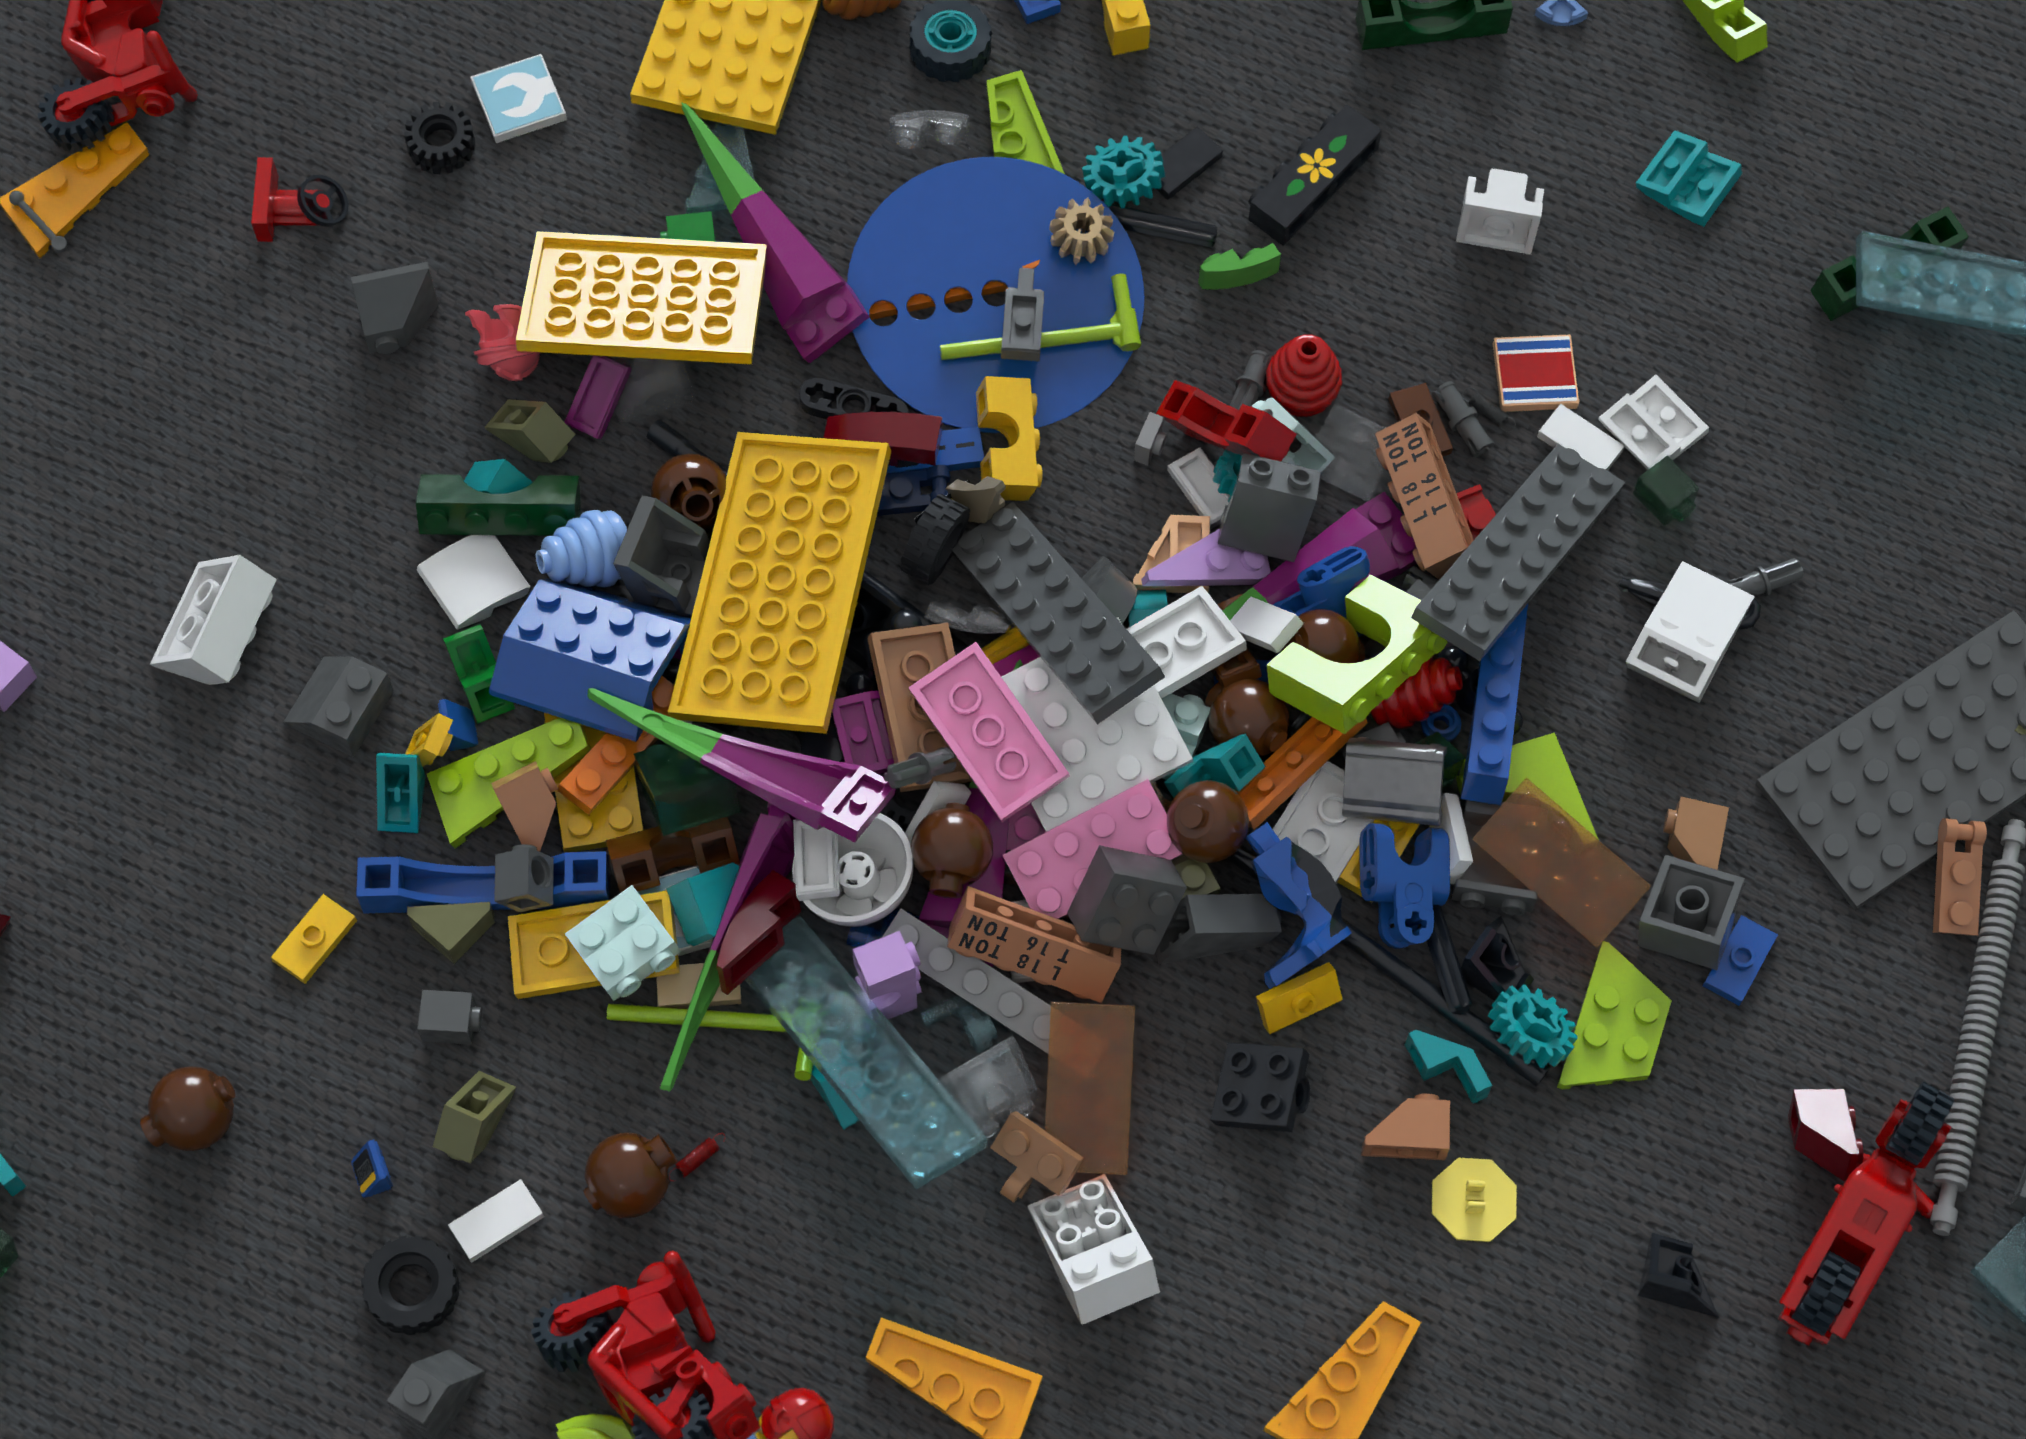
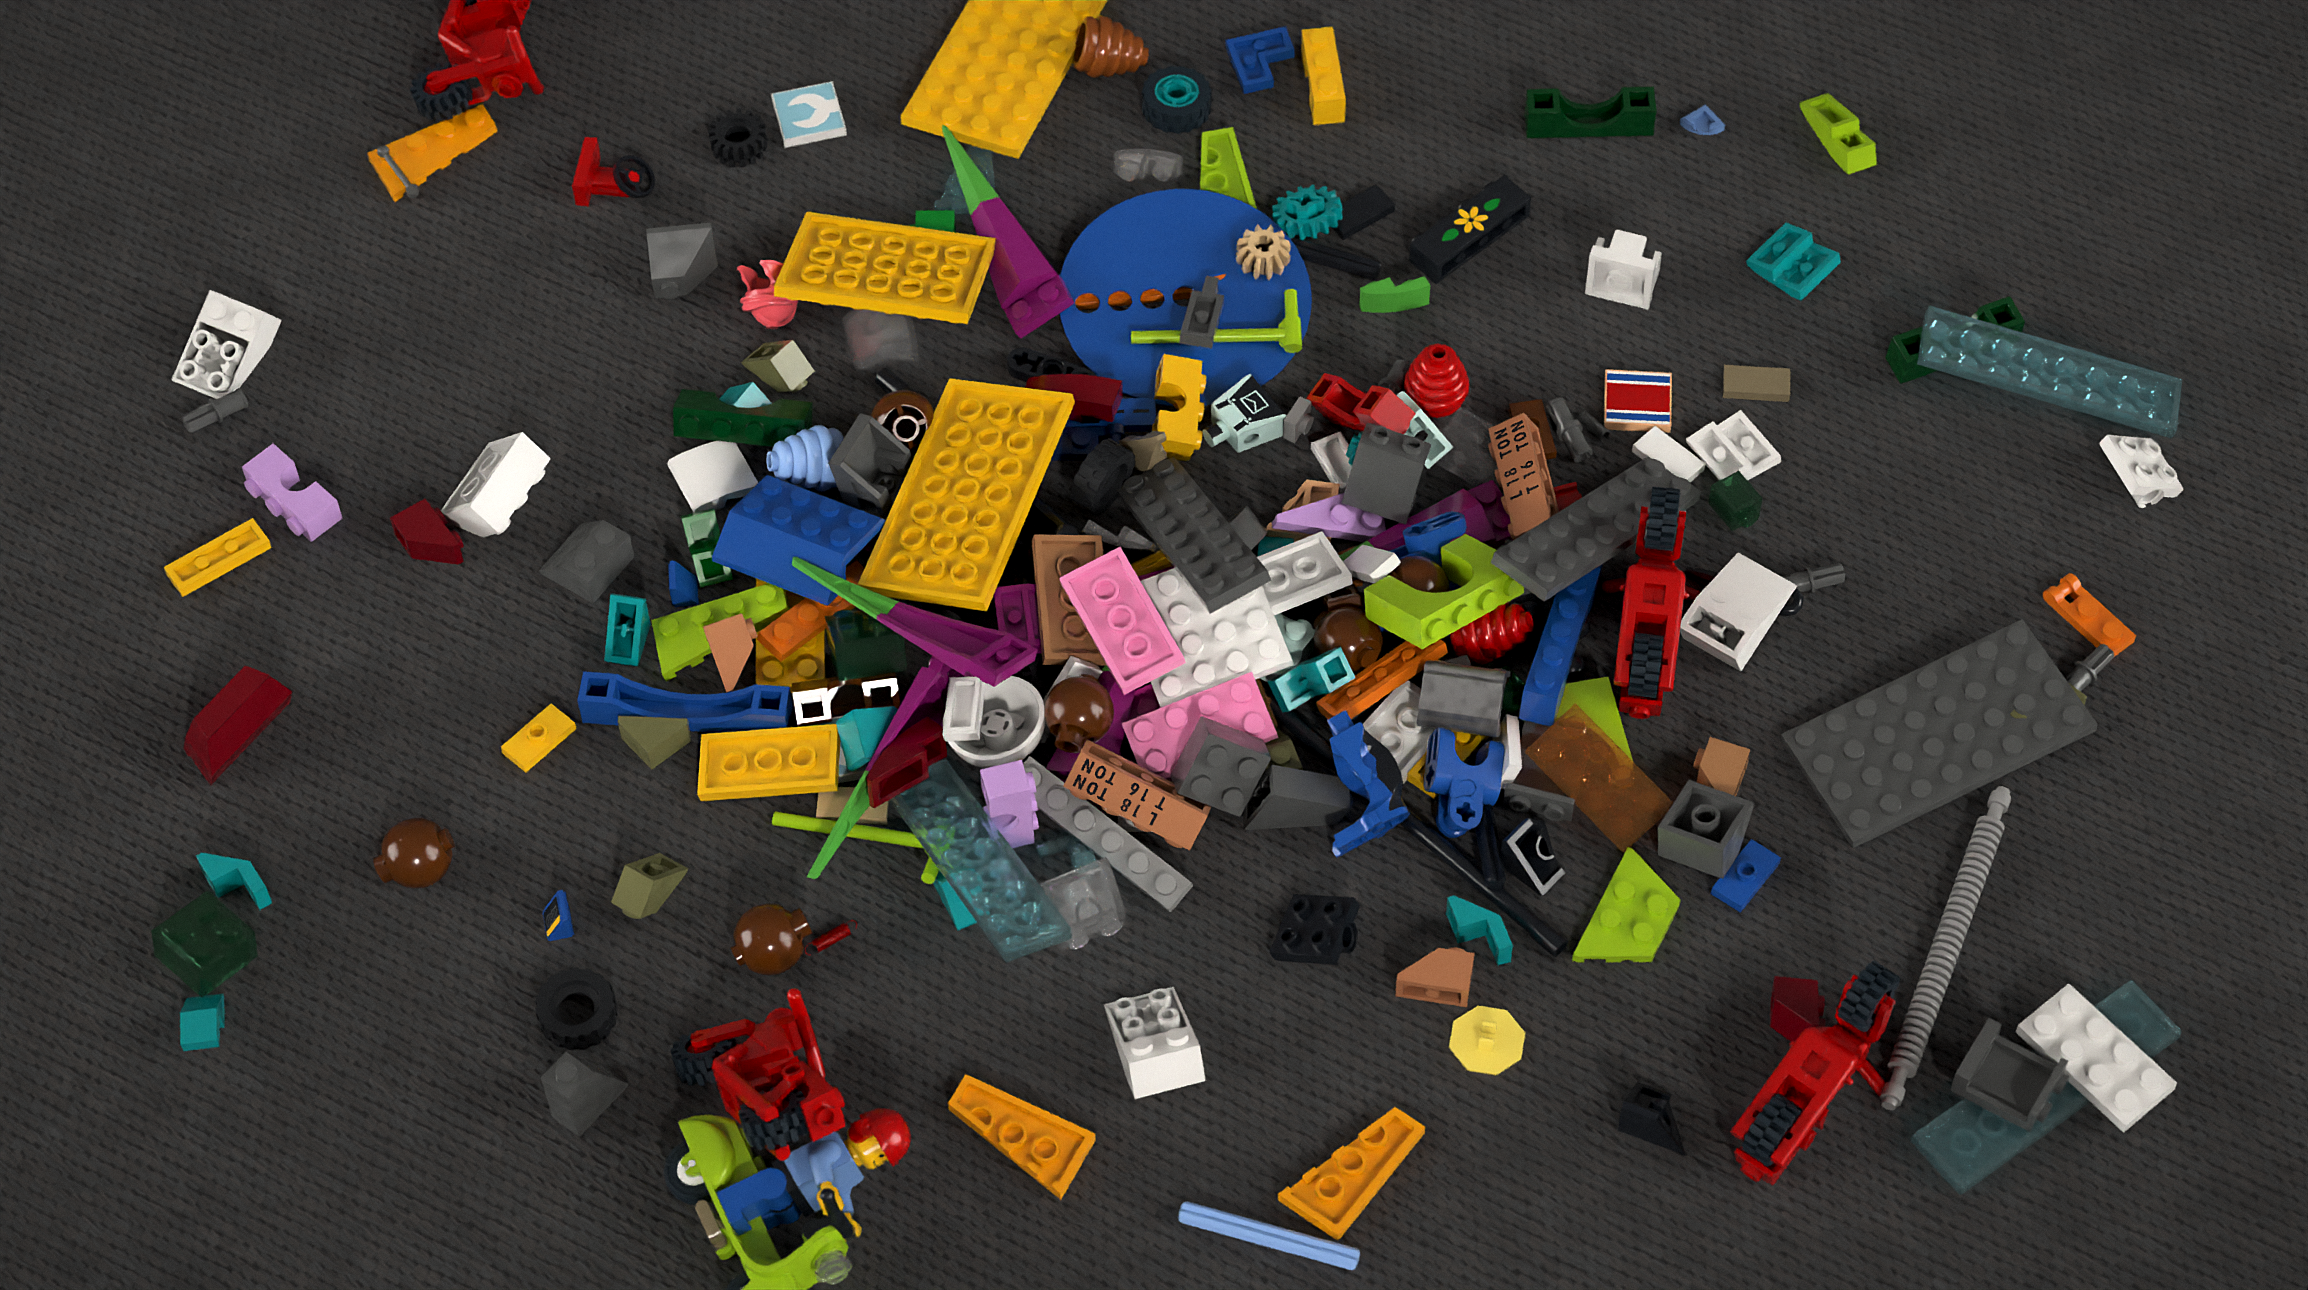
camera: 10 degrees right, 10 degrees down
(140, 693) = (425, 536): none -> dark red slope
(431, 739) = (660, 589): yellow plate -> none
(448, 1017) = (640, 806): dark grey brick -> none
(496, 1220) = (655, 968): white tile -> none
(524, 878) = (718, 701): dark grey brick -> none
(598, 396) = (838, 344): magenta tile -> none
(623, 943) = (793, 760): light aqua plate -> none
(920, 768) = (1059, 640): dark grey axle -> none
(1036, 1157) = (1115, 962): medium nougat plate -> none
(1087, 441) = (1244, 417): none -> light aqua torso
(1091, 1082) = (1168, 913): clear orange plate -> none
(1207, 821) = (1297, 711): reddish brown brick -> none
(1299, 998) = (1359, 864): yellow plate -> none
(1448, 715) = (1517, 657): blue plate -> none
(1532, 1026) = (1555, 904): teal gear -> none
(1600, 645) = (1651, 608): none -> red piece
(1668, 337) = (1756, 383): none -> dark tan tile
(1958, 878) = (1944, 827): nougat plate -> none

